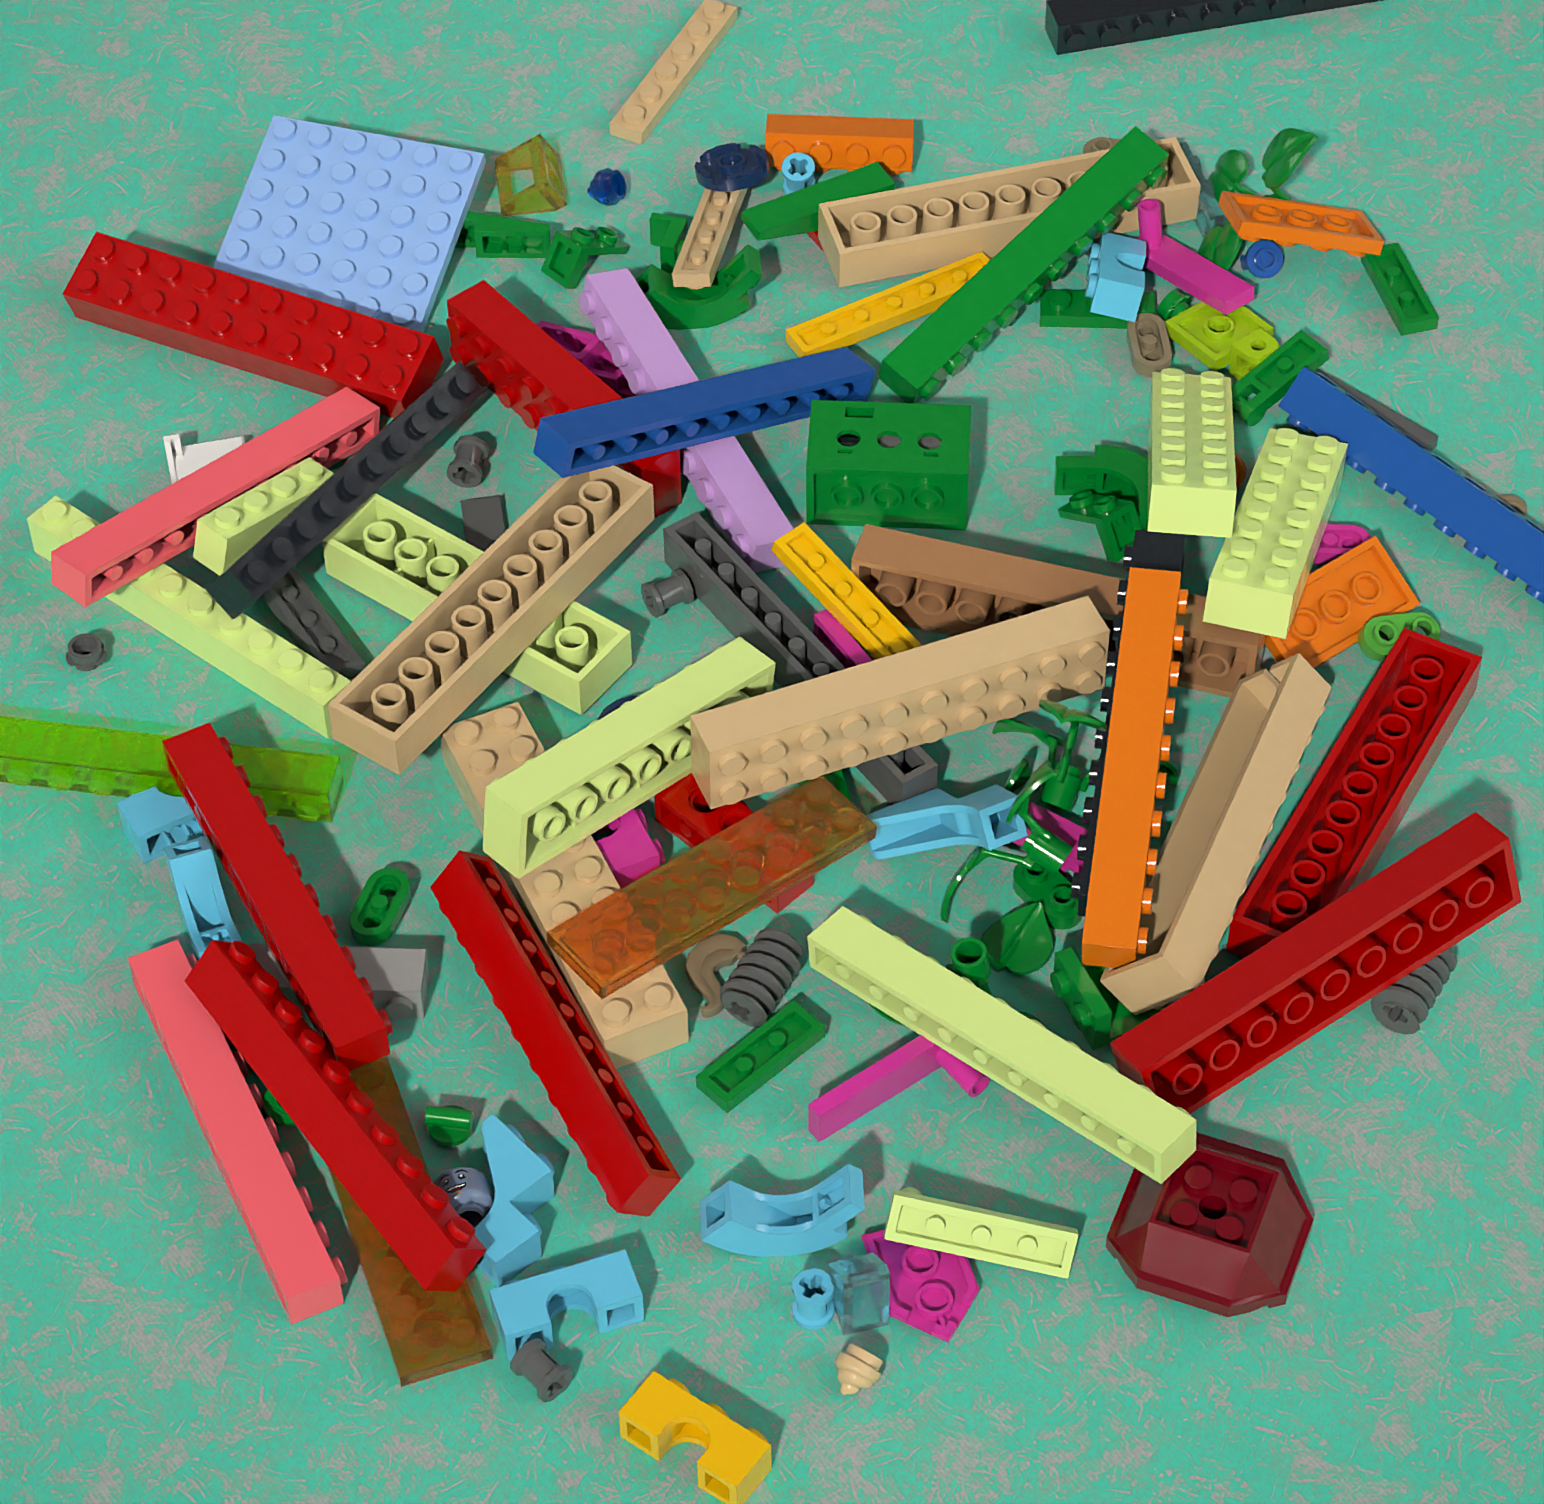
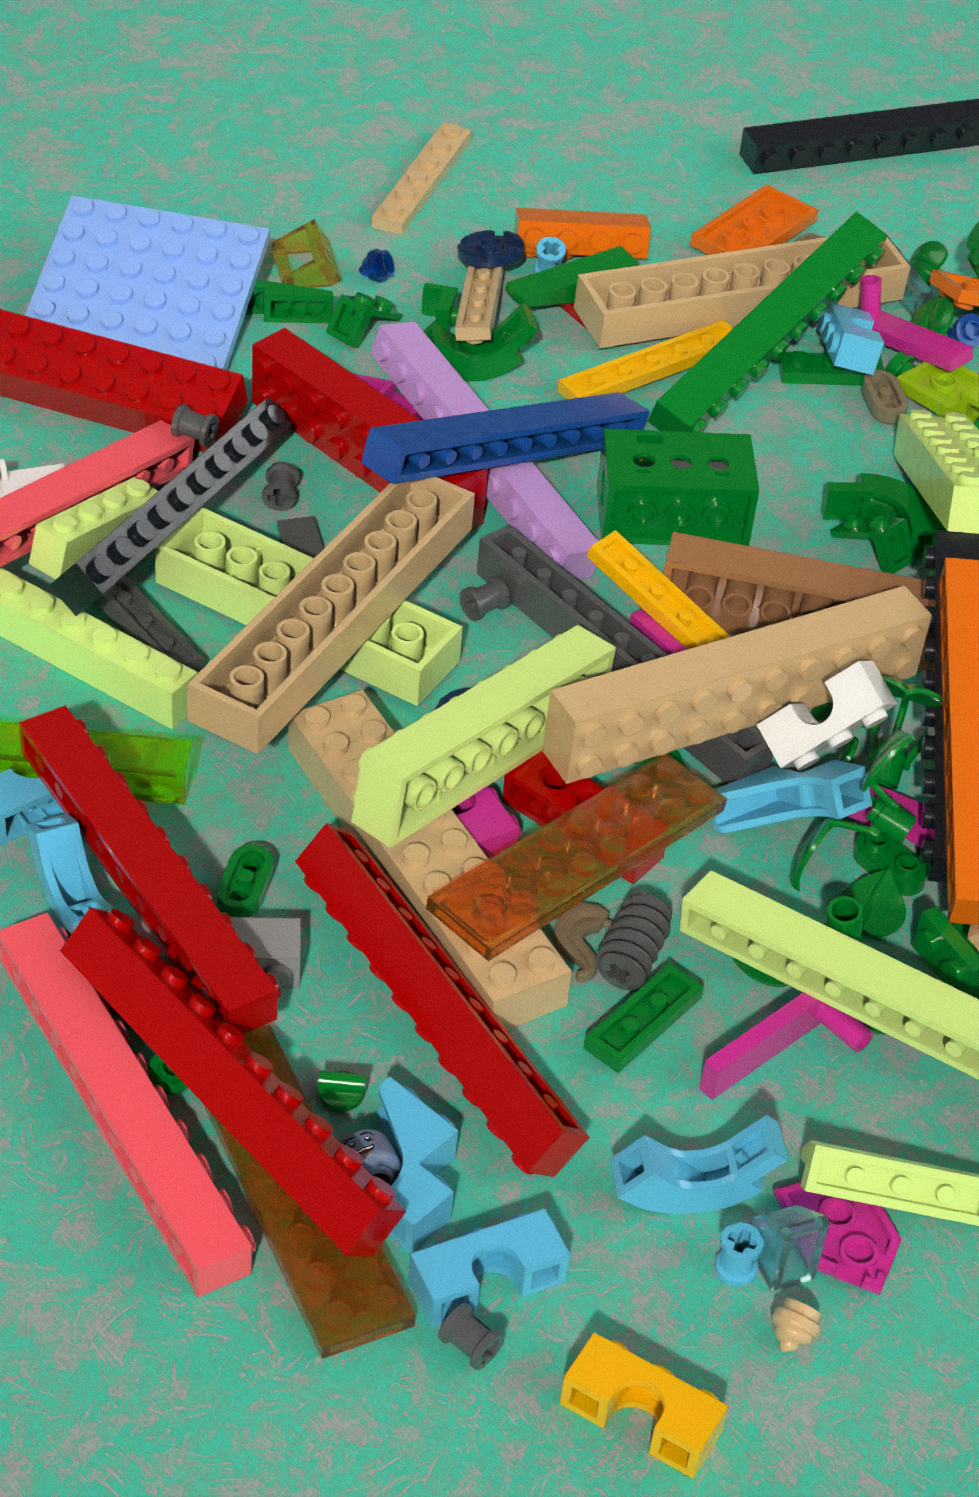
camera: 10 degrees left, 5 degrees down
(378, 396) = (194, 425): none -> dark grey bush
(1014, 725) = (858, 700): none -> white arch
(1042, 125) = (757, 221): none -> orange plate

